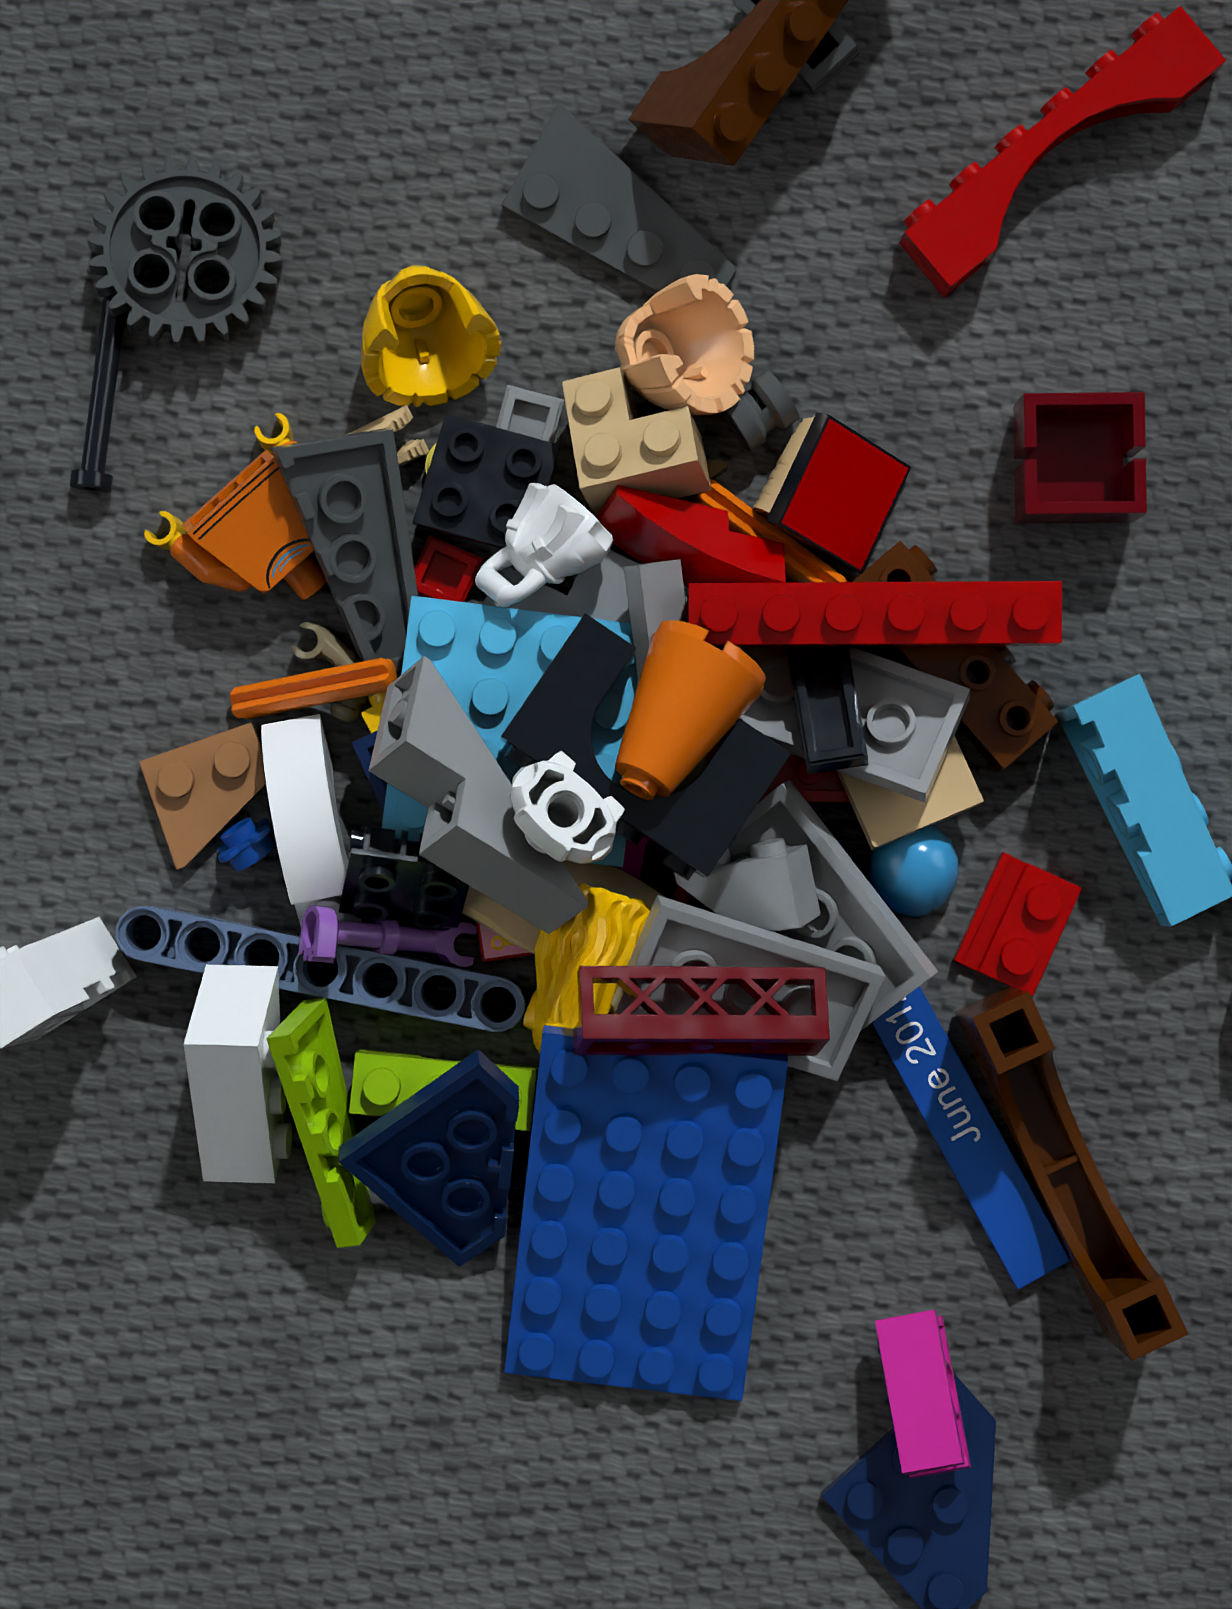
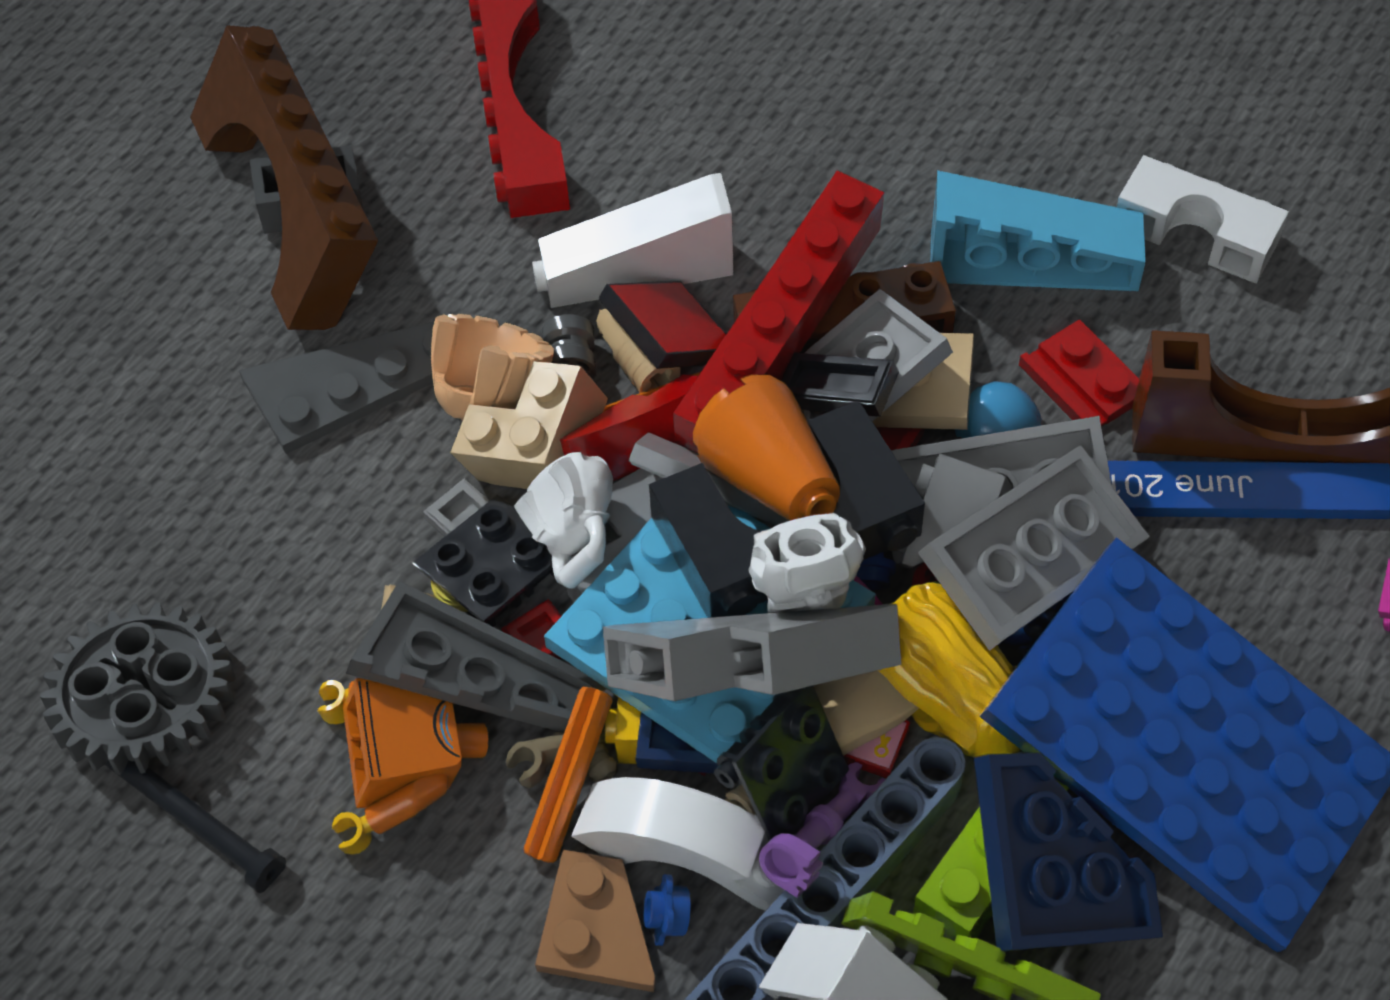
camera: 55 degrees left, 30 degrees down
(426, 339) = (346, 533): yellow hair -> none
(701, 1034) = (1057, 570): dark red fence -> none
(910, 406) = (658, 239): none -> white slope
(1077, 455) = (756, 182): dark red piece -> none

